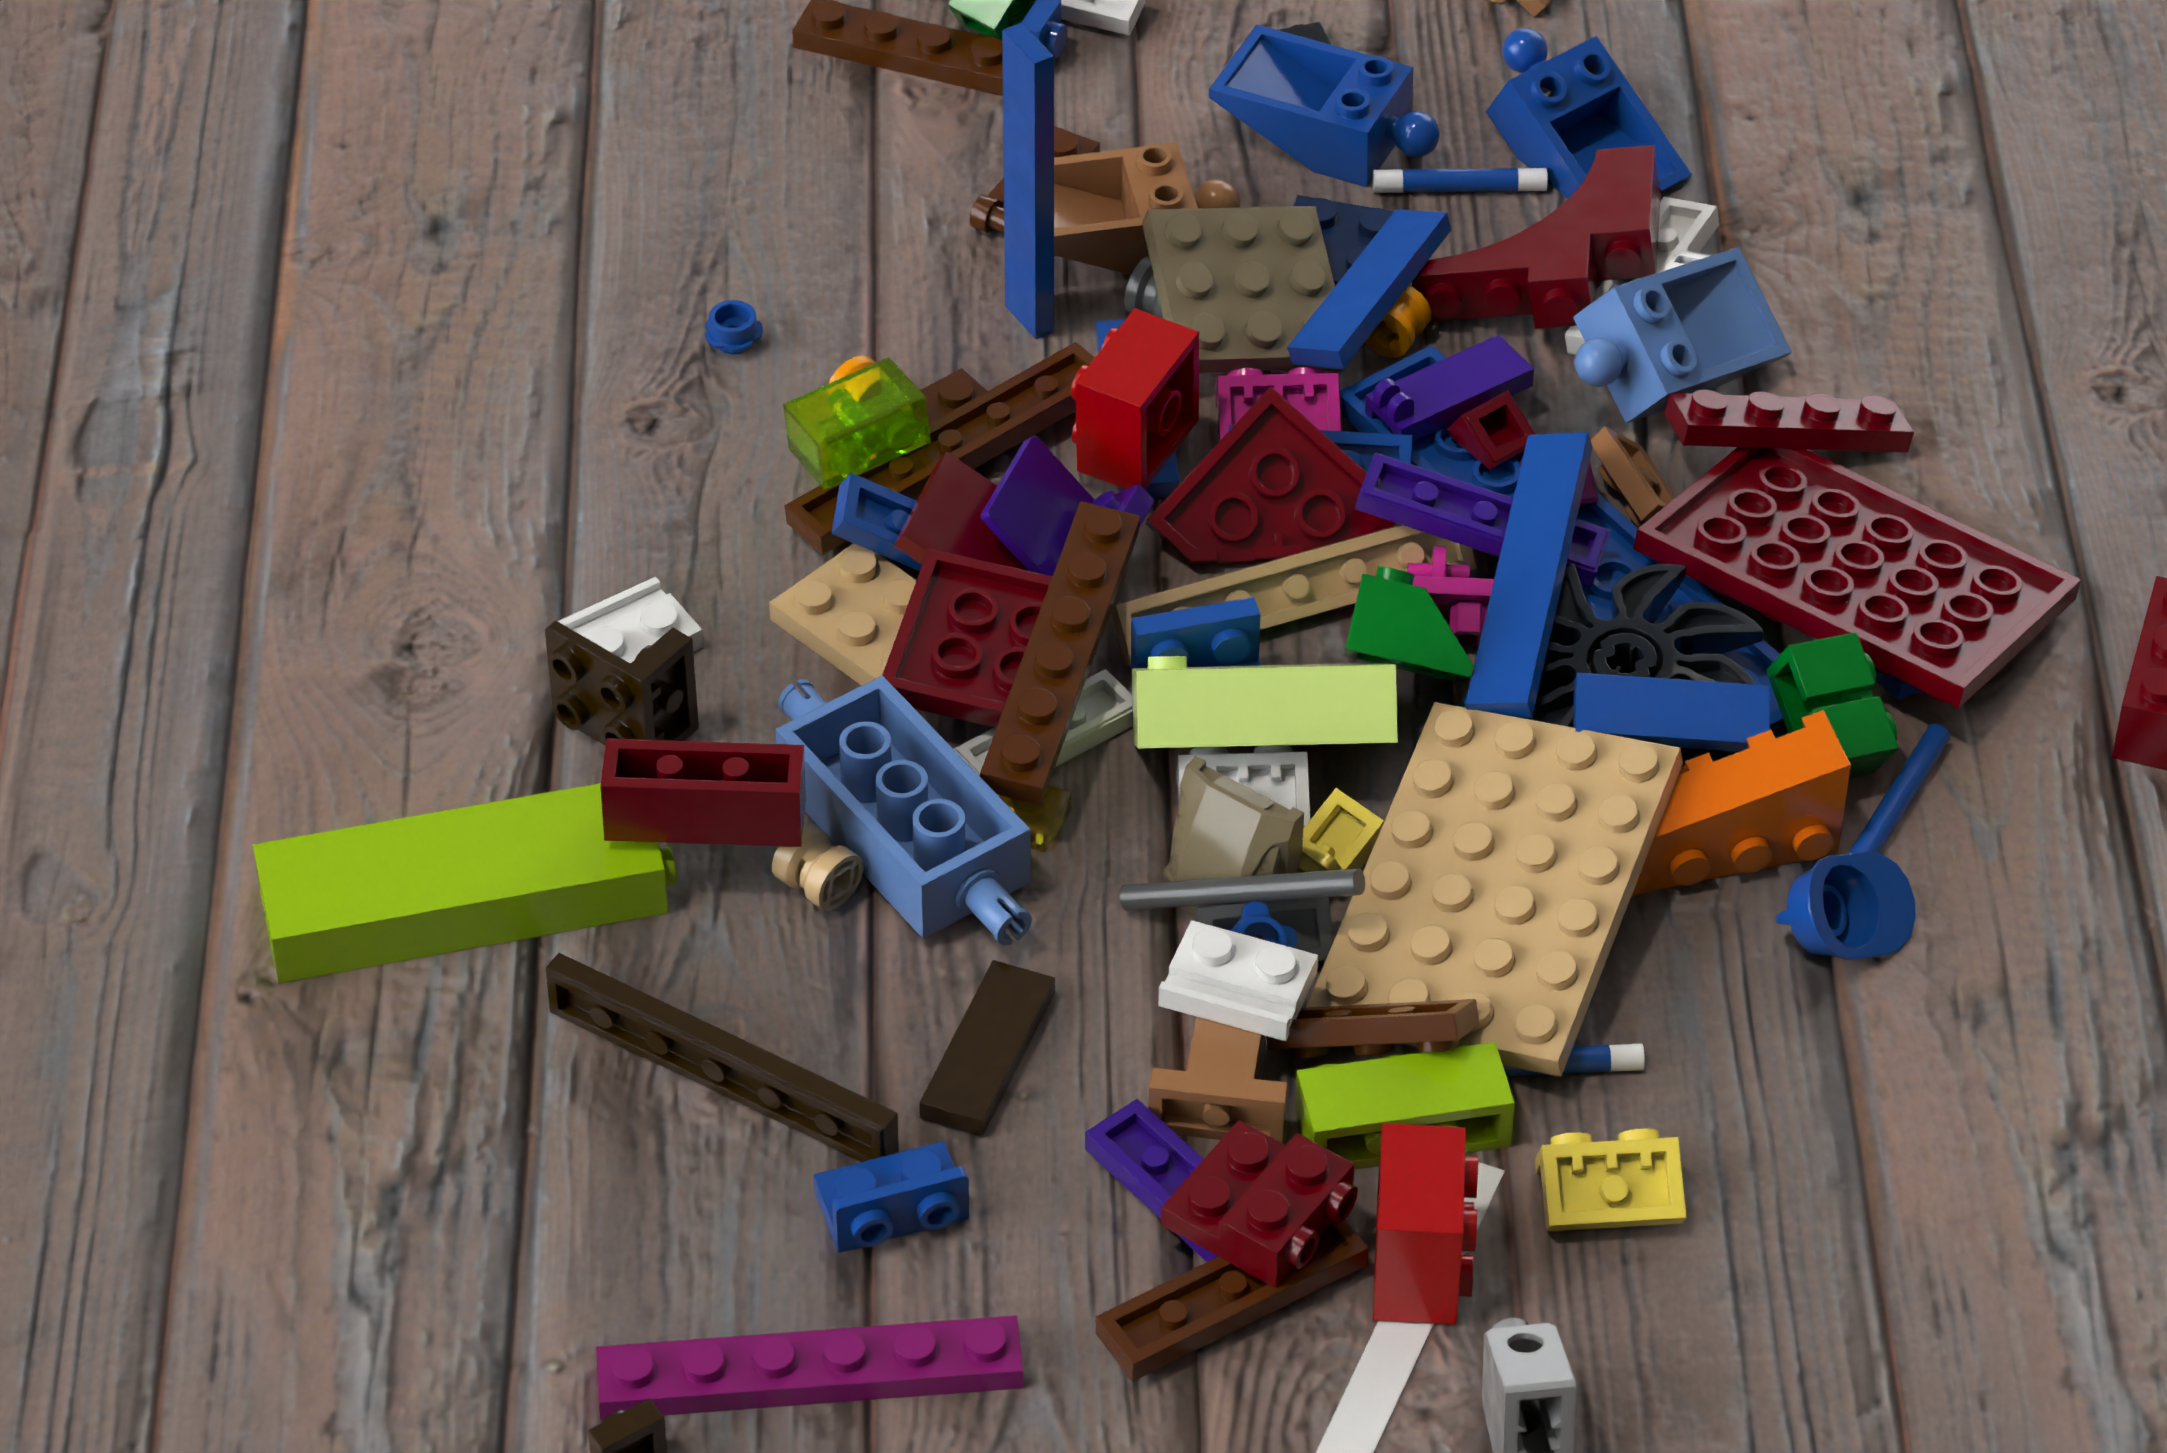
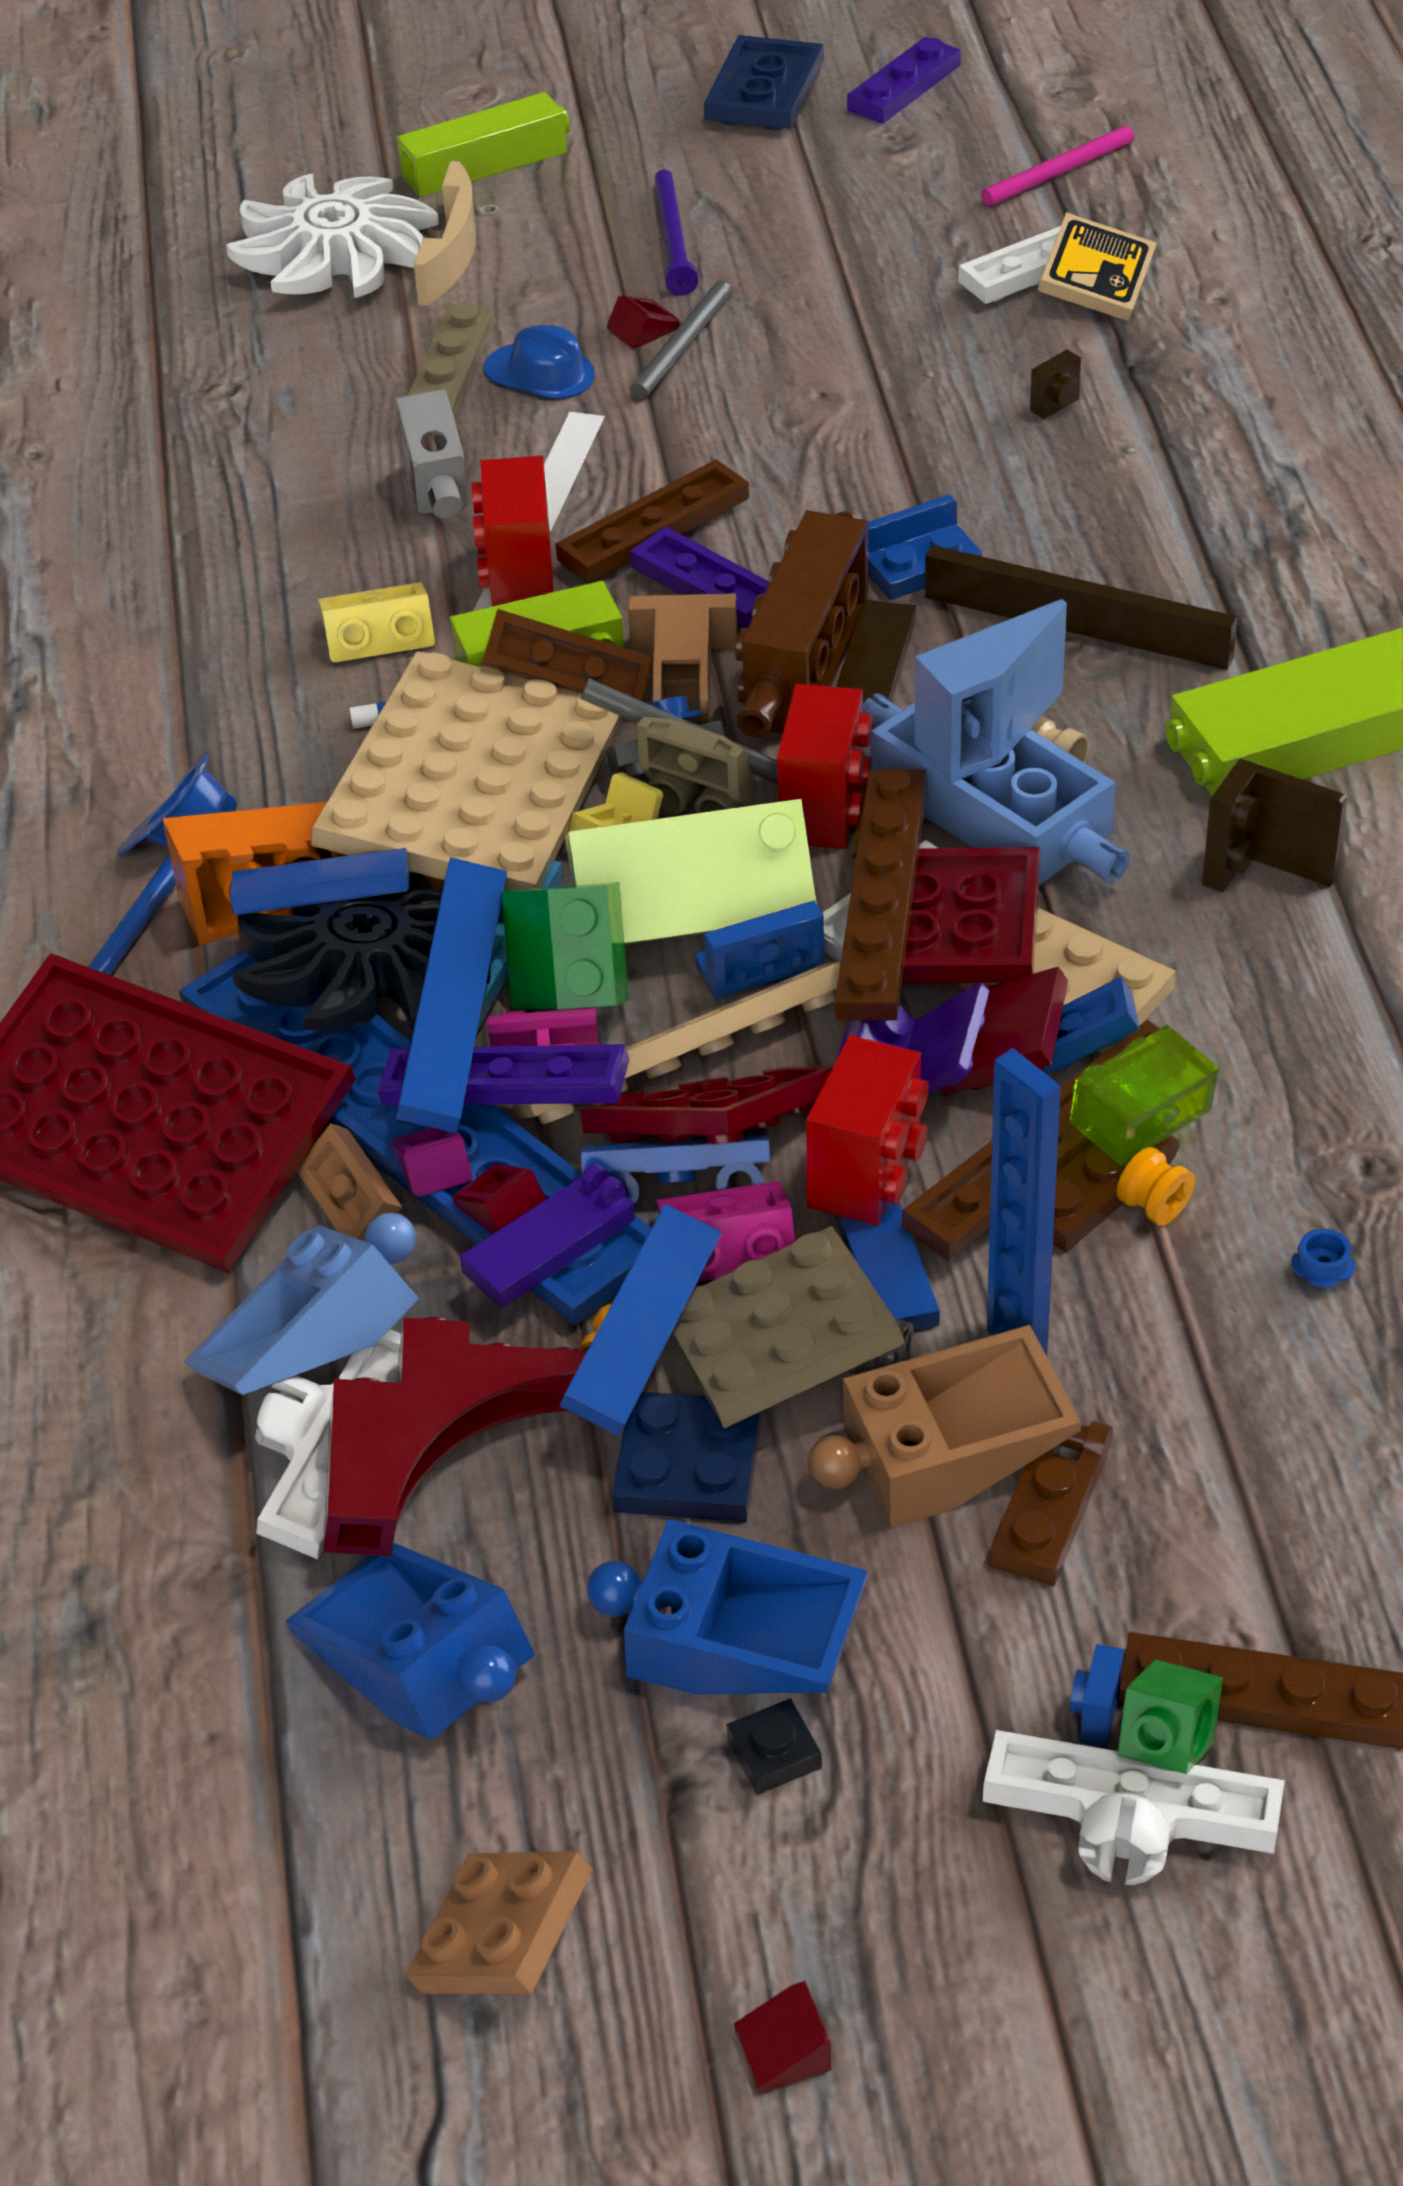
camera: 175 degrees right, 0 degrees up
(634, 620) = (1298, 940): white plate -> none
(703, 792) = (1152, 694): dark red brick -> none
(812, 1366) = (947, 456): magenta plate -> none
(892, 762) = (988, 690): none -> medium blue slope
(1068, 1034) = (803, 618): none -> reddish brown brick
(1090, 829) = (825, 760): none -> red brick
(1238, 980) = (676, 658): white plate -> none
(1262, 1201) = (635, 539): dark red plate -> none
(1459, 180) = (562, 1572): blue bar -> none
(1788, 422) = (189, 1256): dark red plate -> none
(1836, 678) = (172, 951): green piece -> none

